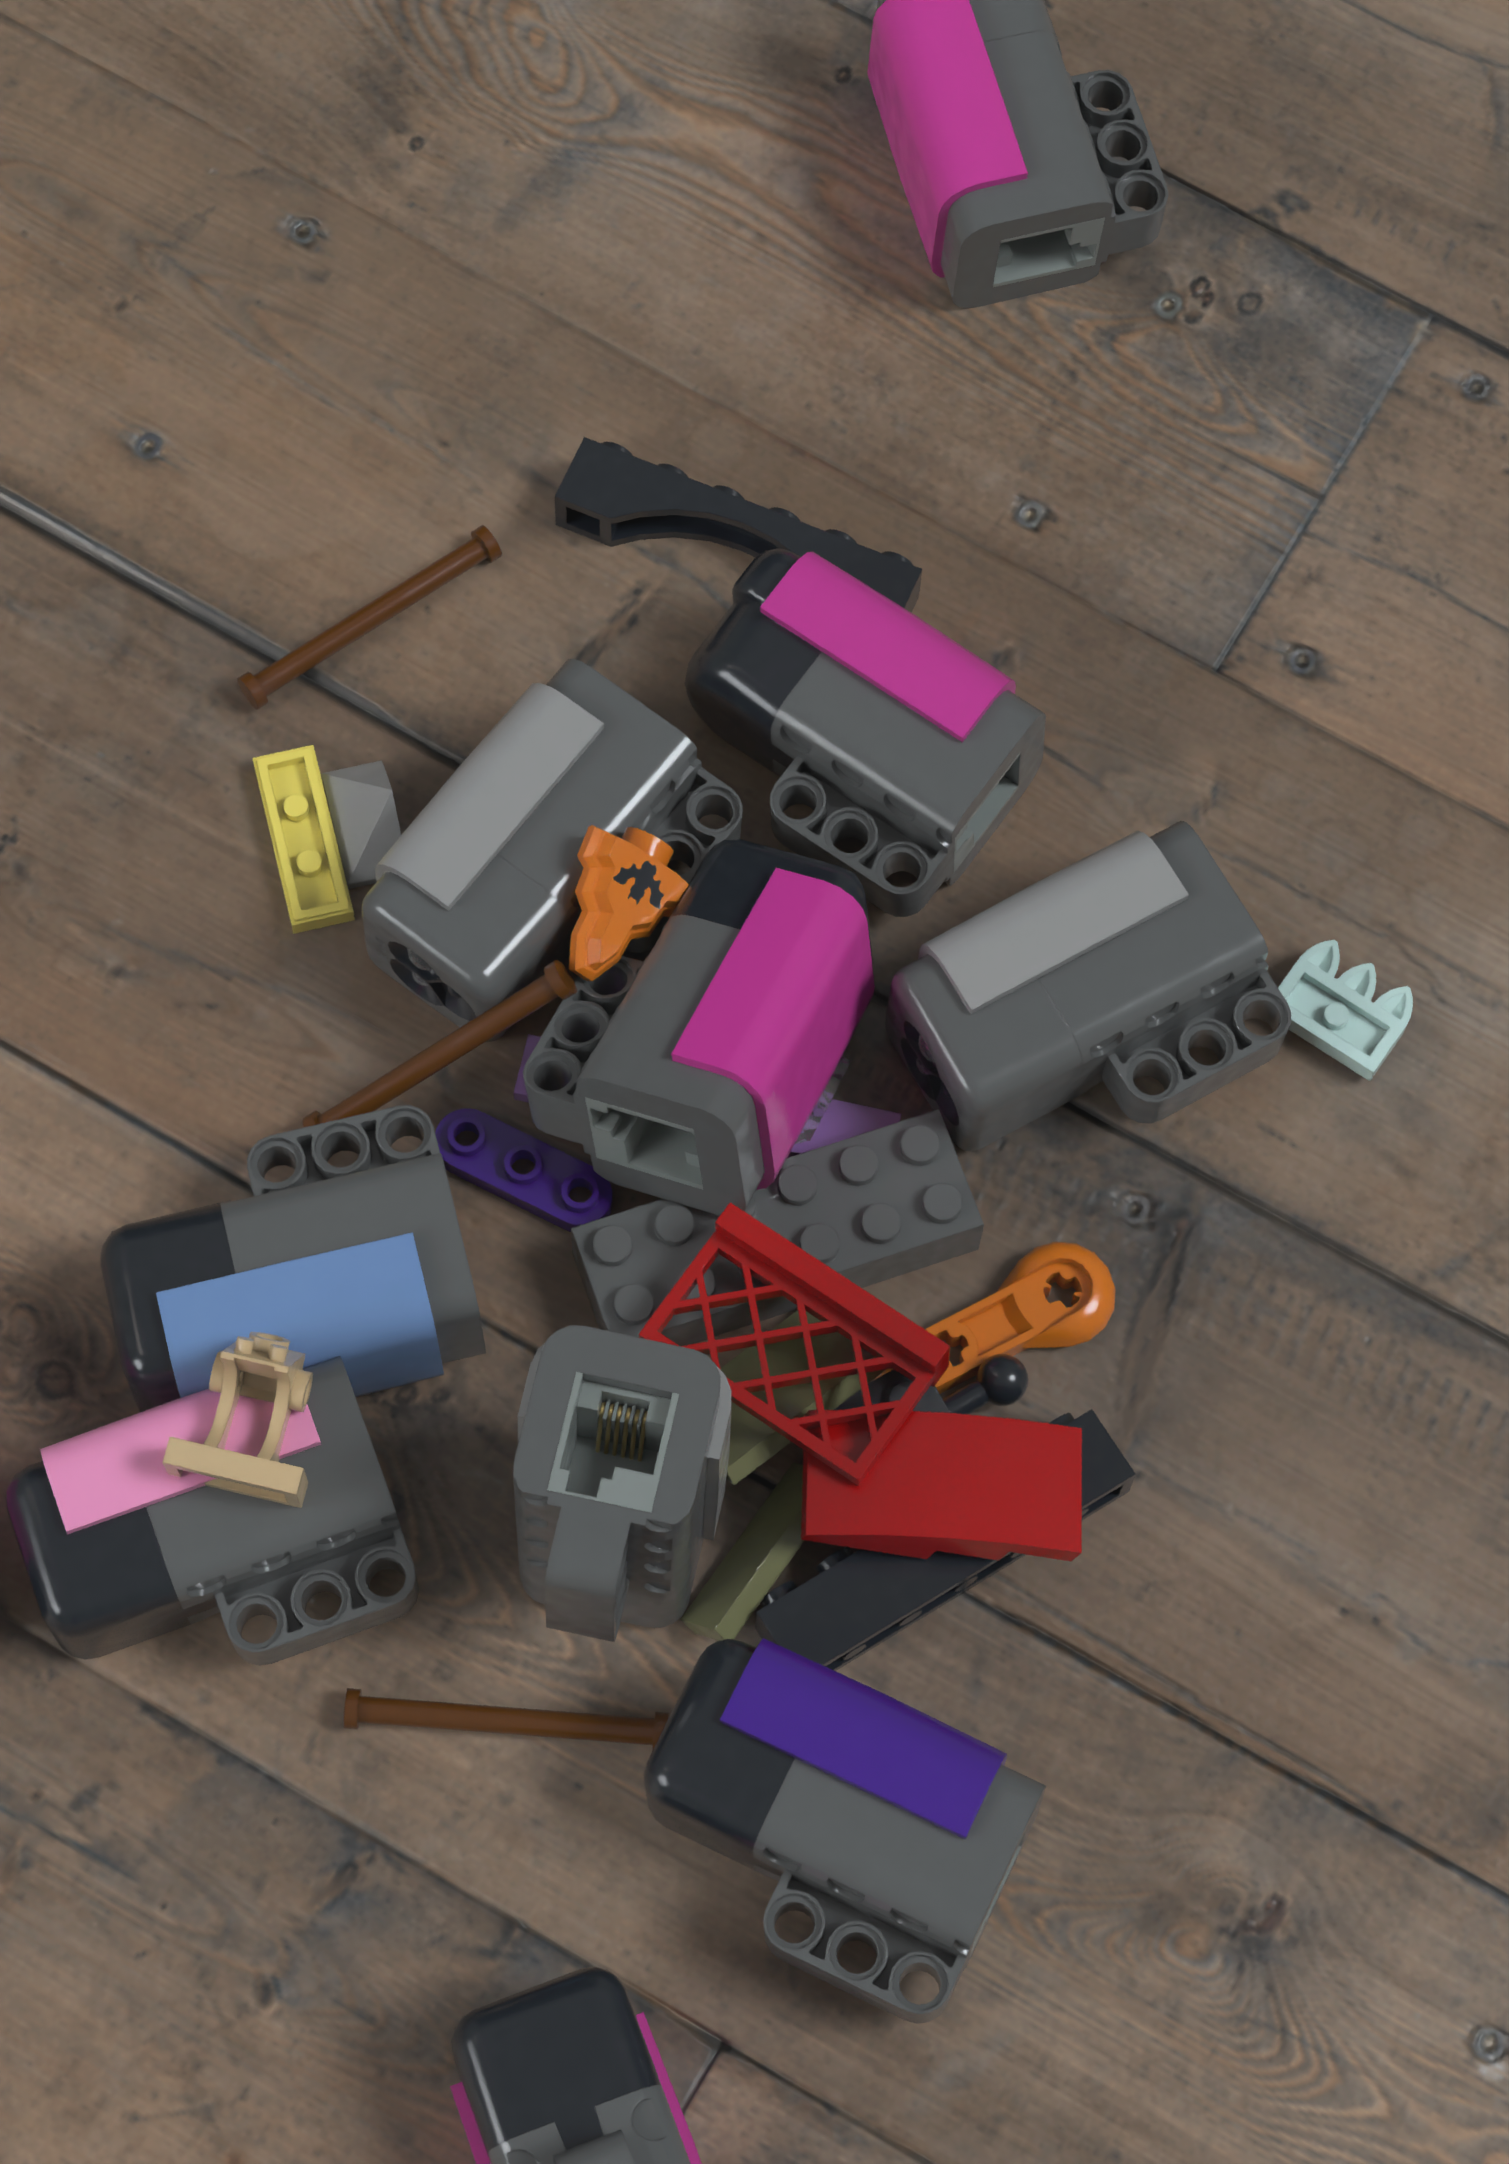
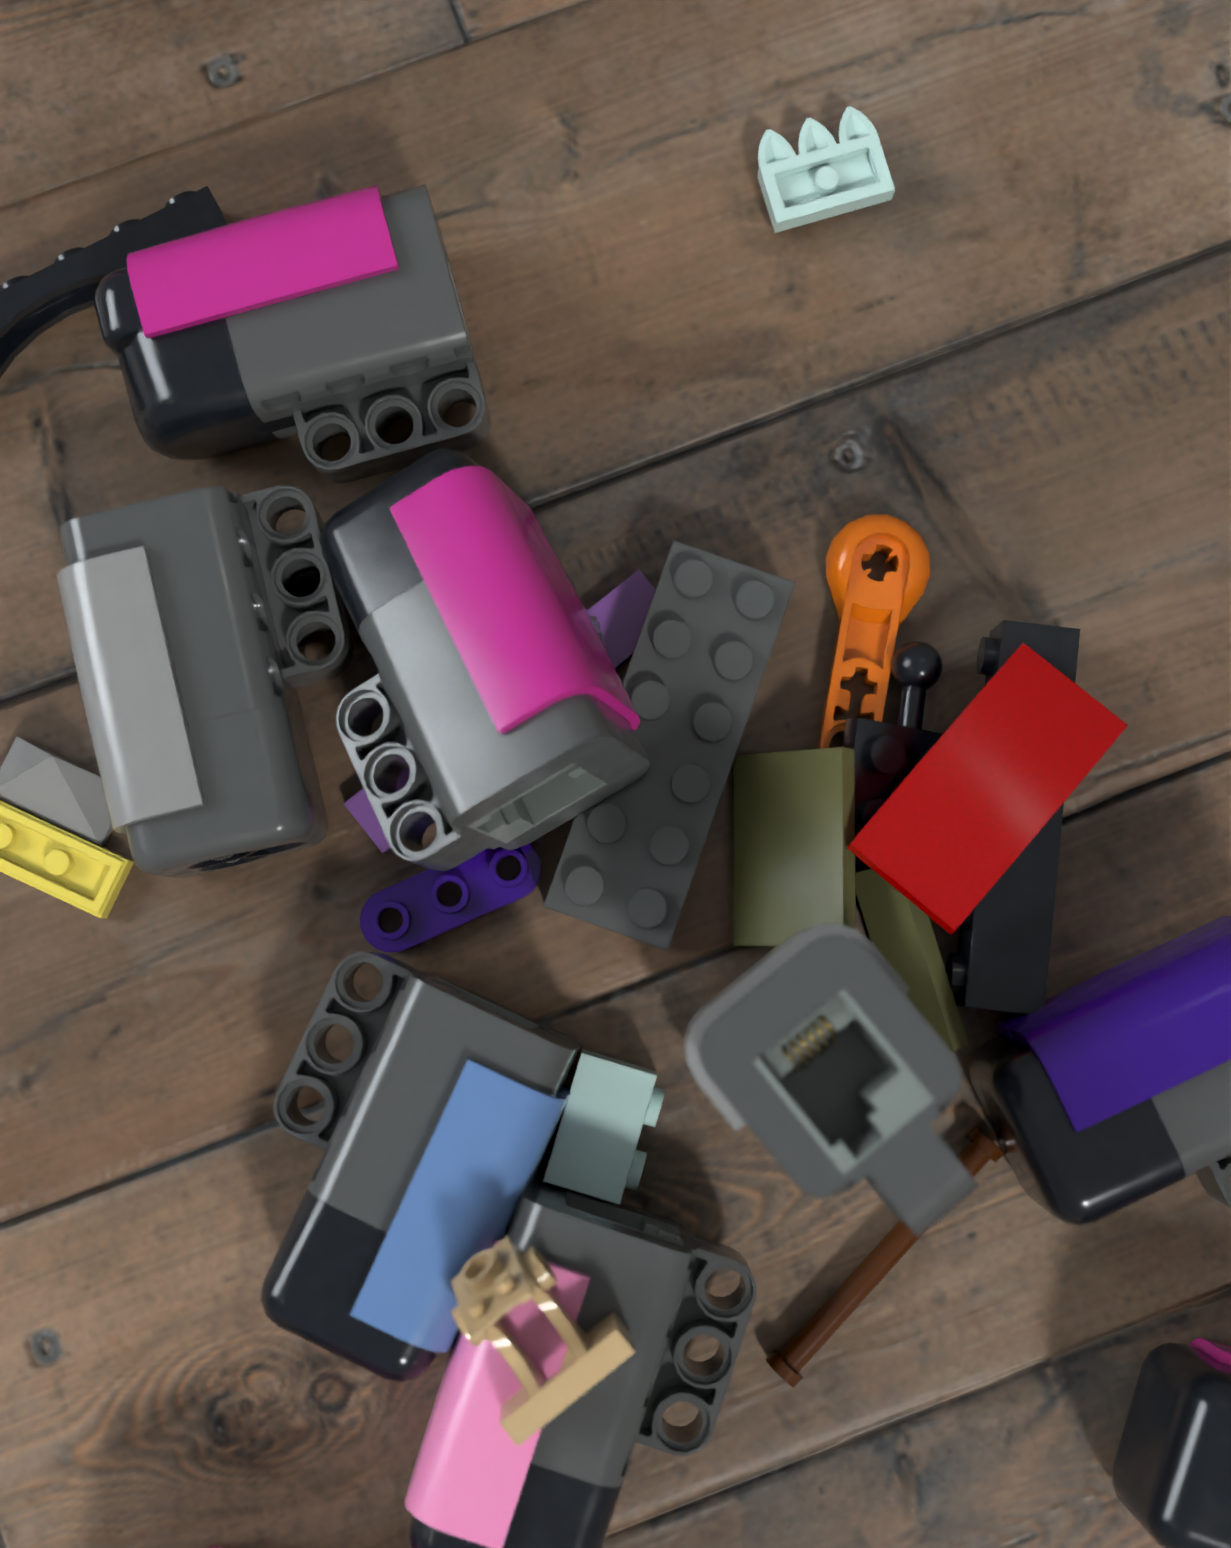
camera: 45 degrees left, 15 degrees up
(435, 1416) = (602, 1127): none -> light aqua brick
(554, 983) = (336, 765): reddish brown bar -> none
(621, 896) = (305, 652): orange rock -> none
(839, 1307) = (782, 757): red fence -> none
(1087, 984) = (667, 333): dark grey piece -> none

